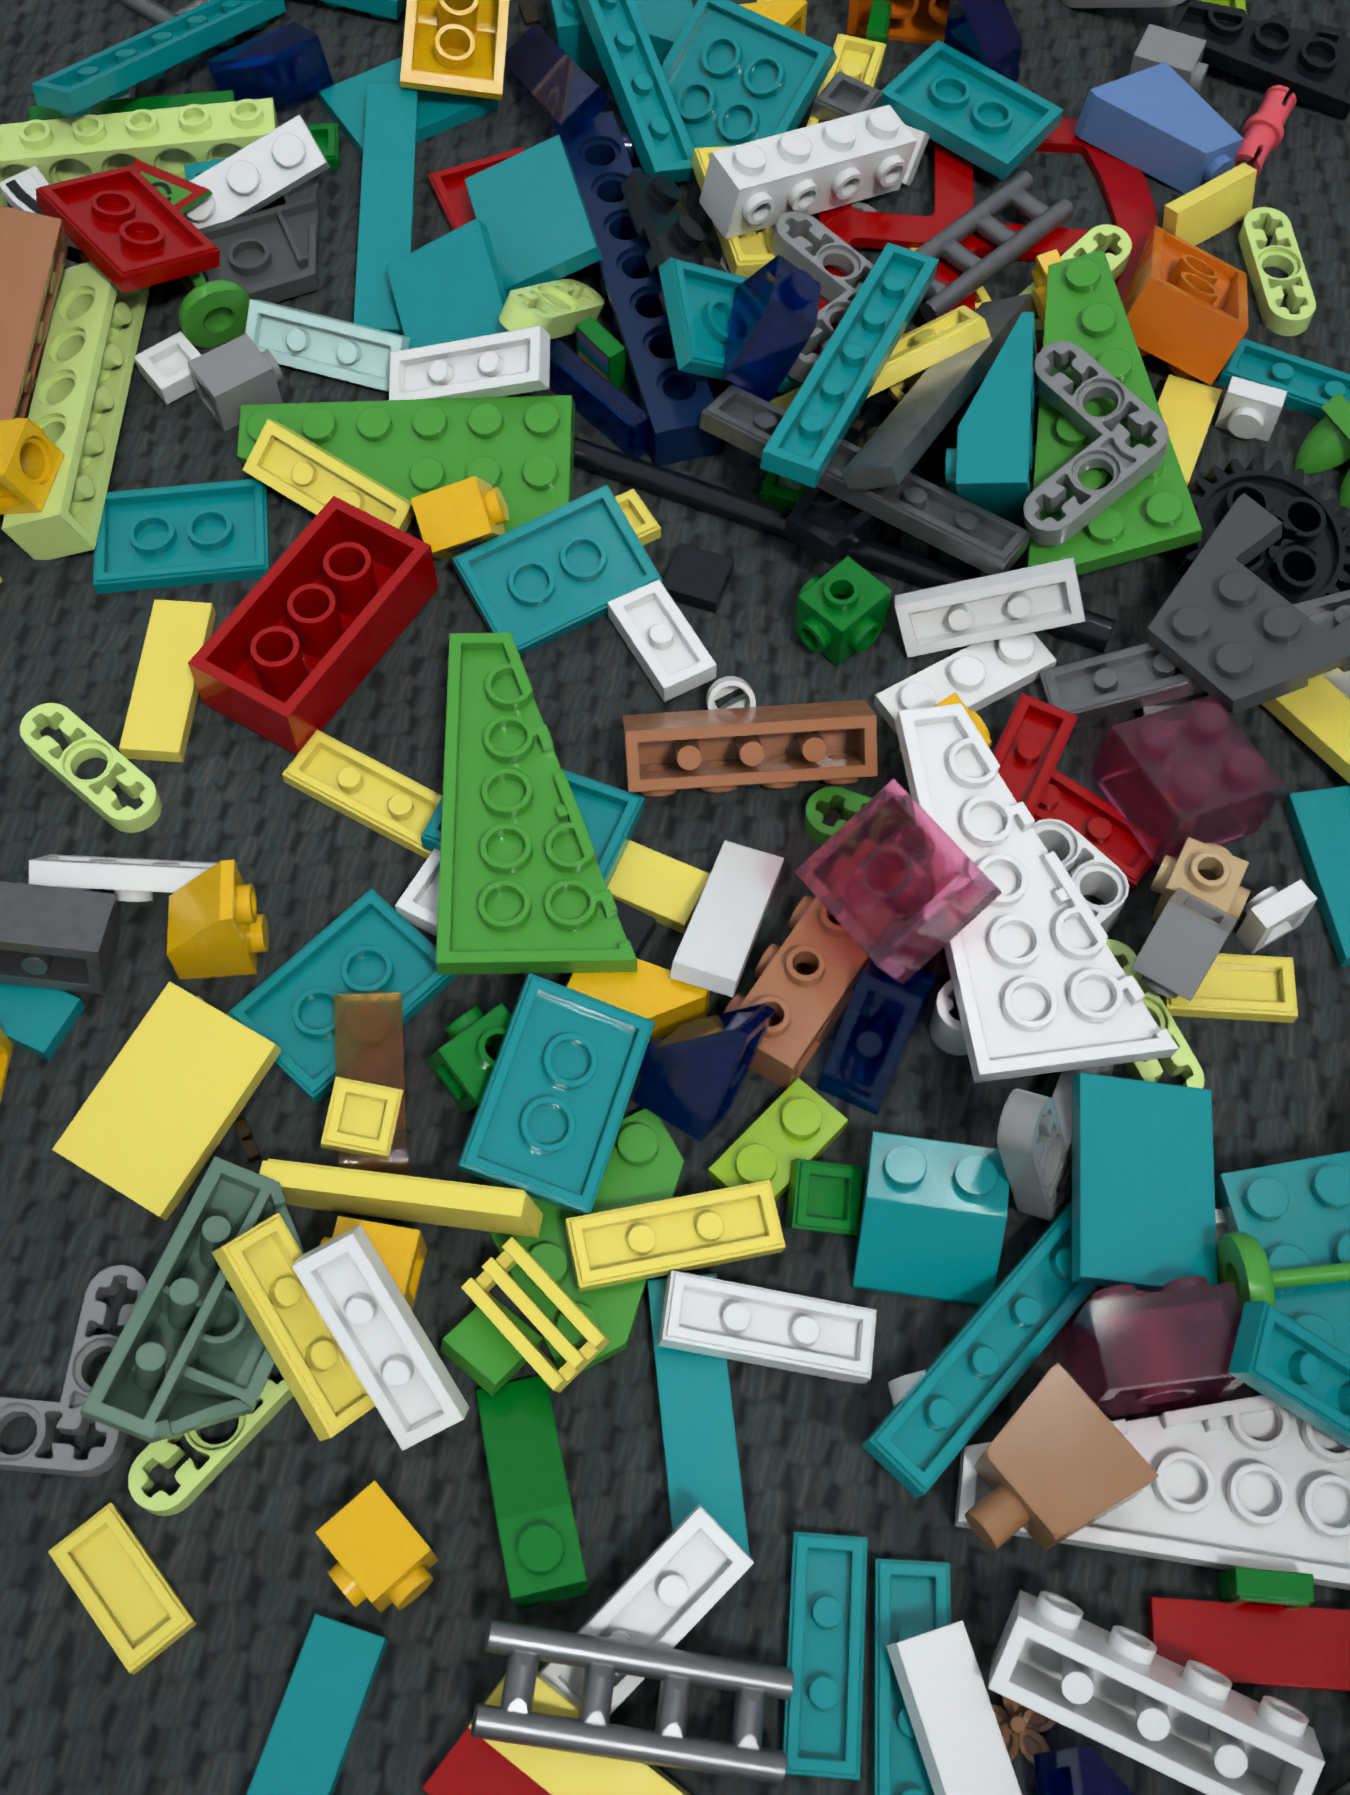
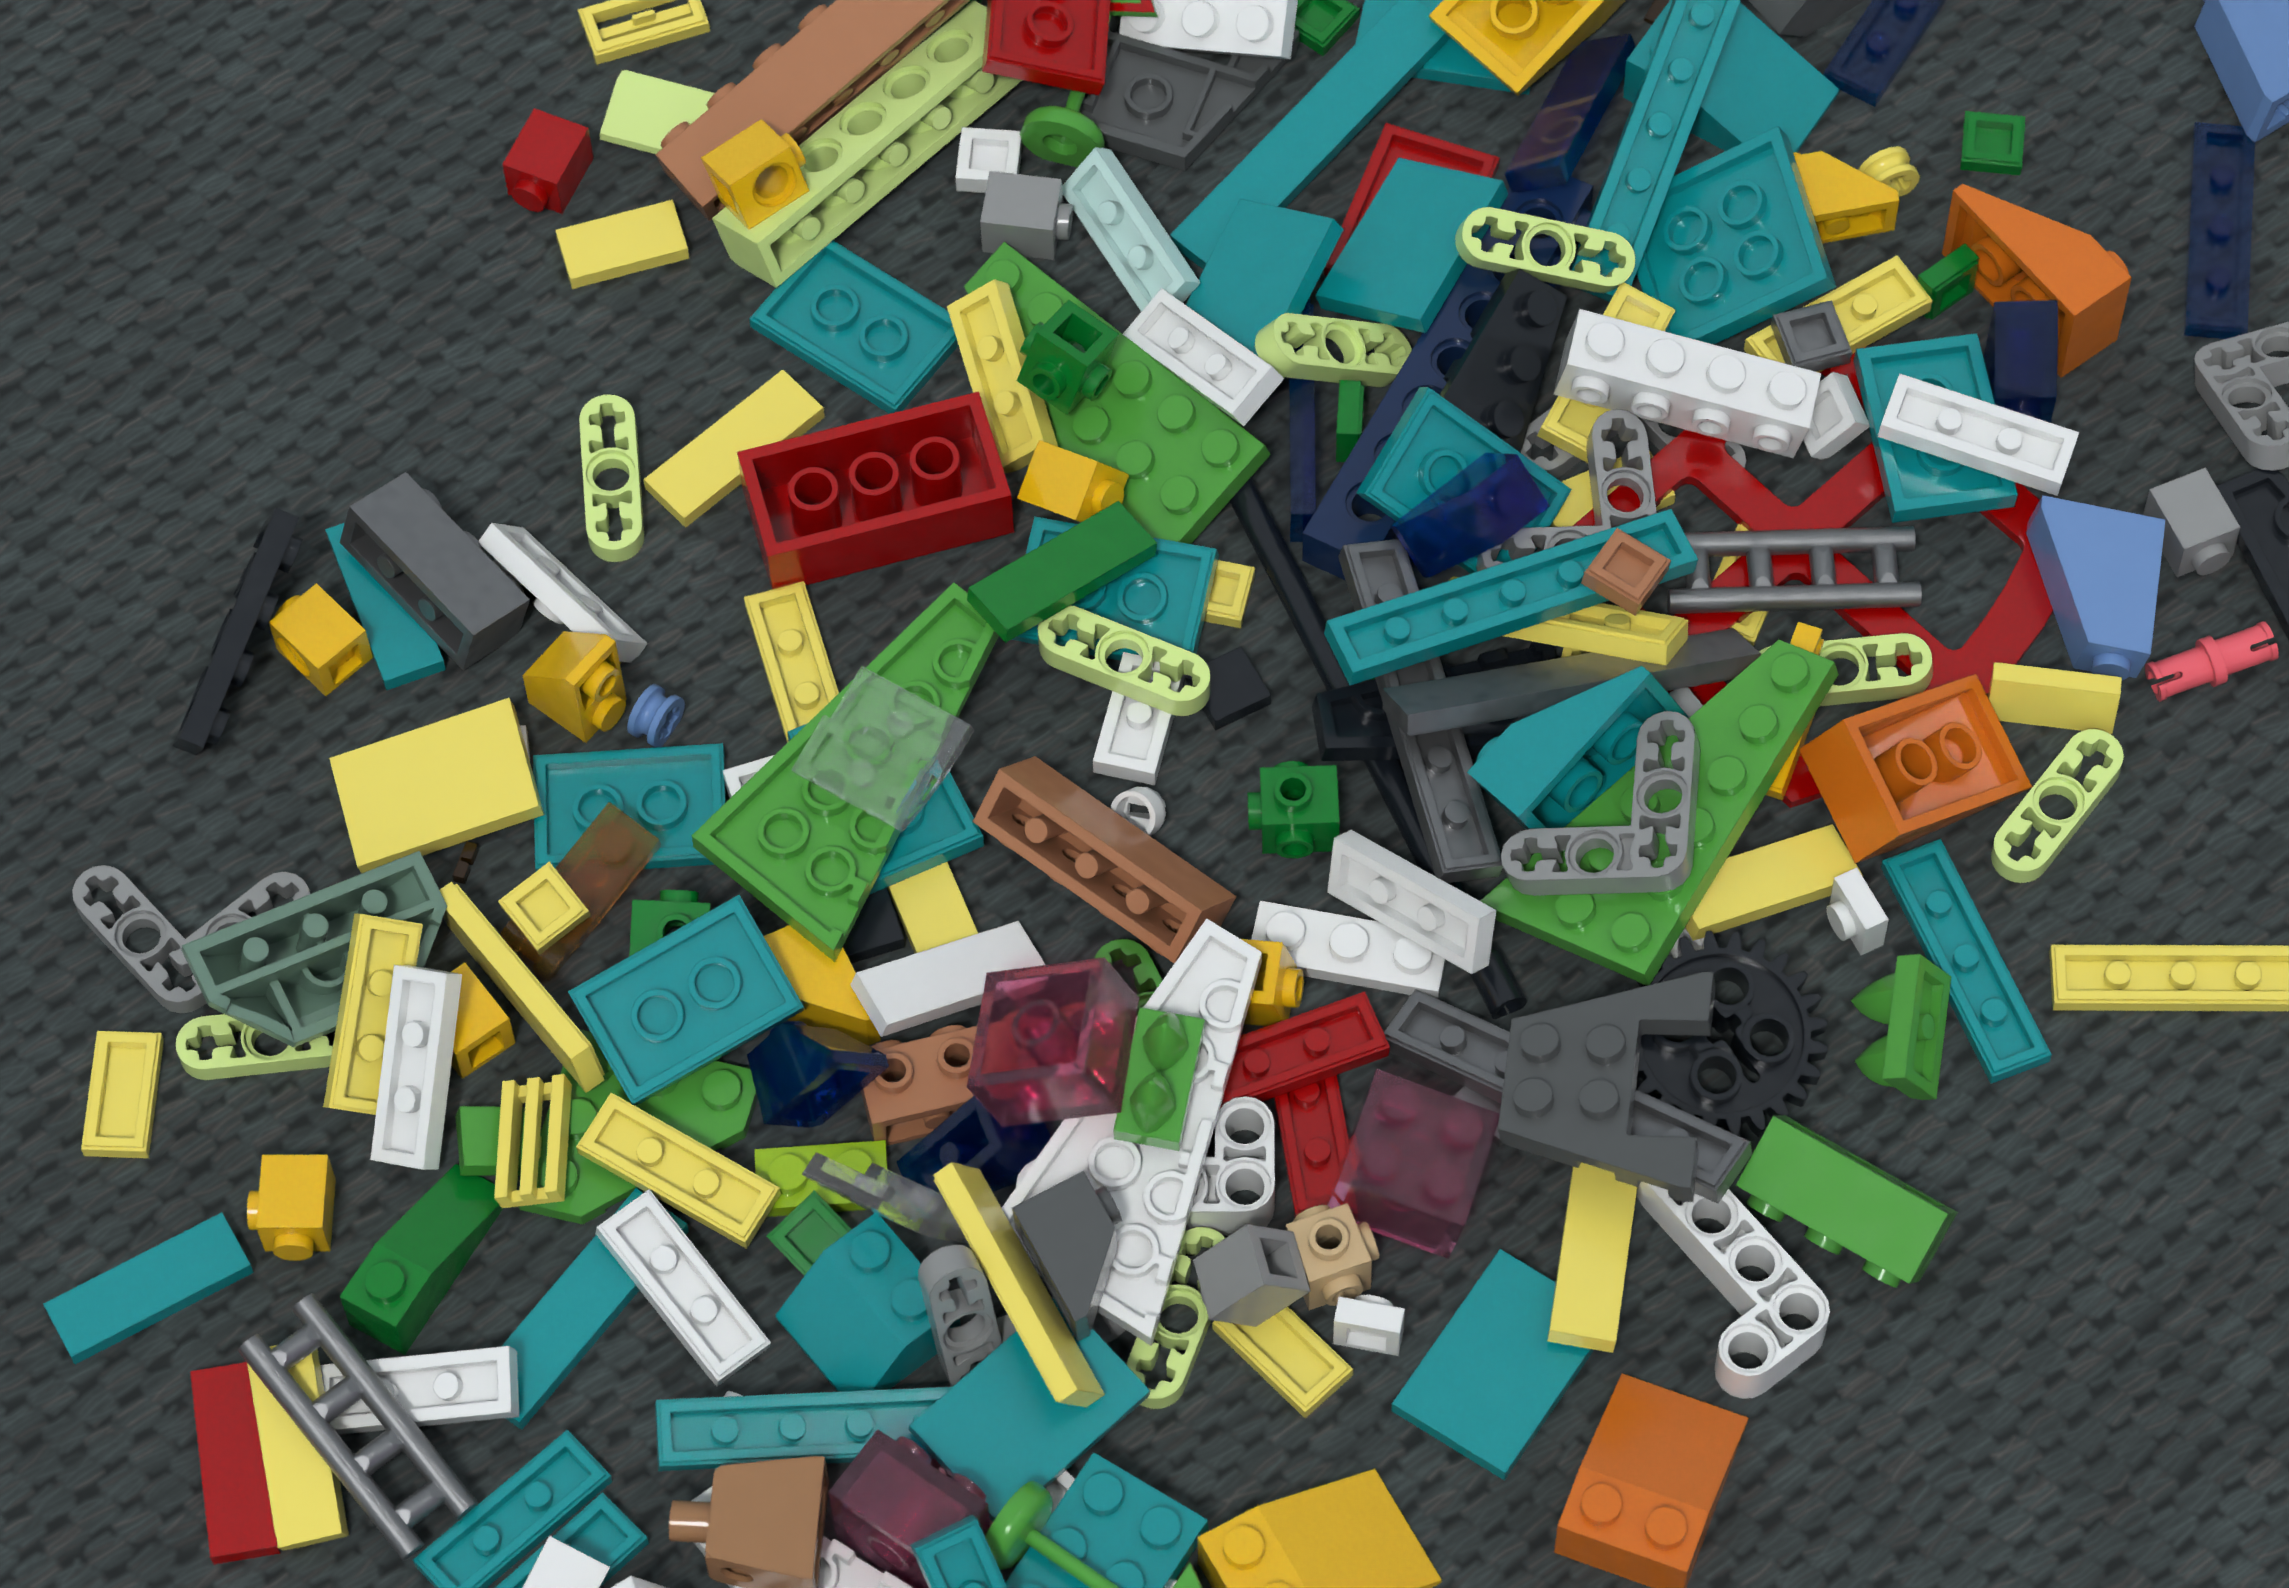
camera: 45 degrees right, 0 degrees up
(299, 907) = (655, 715): none -> medium blue bush
(378, 429) = (1067, 357): none -> green brick
(521, 570) = (1061, 571): none -> green tile
(525, 782) = (883, 749): none -> clear slope
(630, 582) = (1173, 661): none -> yellowish green beam
(642, 137) = (1585, 273): none -> yellowish green beam
(887, 1106) = (887, 1196): none -> clear slope
(912, 290) = (1626, 571): none -> nougat tile
(997, 846) = (1159, 1079): none -> bright green tile
(1012, 82) = (1978, 434): none -> white plate
(1067, 1091) = (1018, 1285): none -> light yellow tile
(1075, 1027) = (1072, 1245): none -> dark grey slope

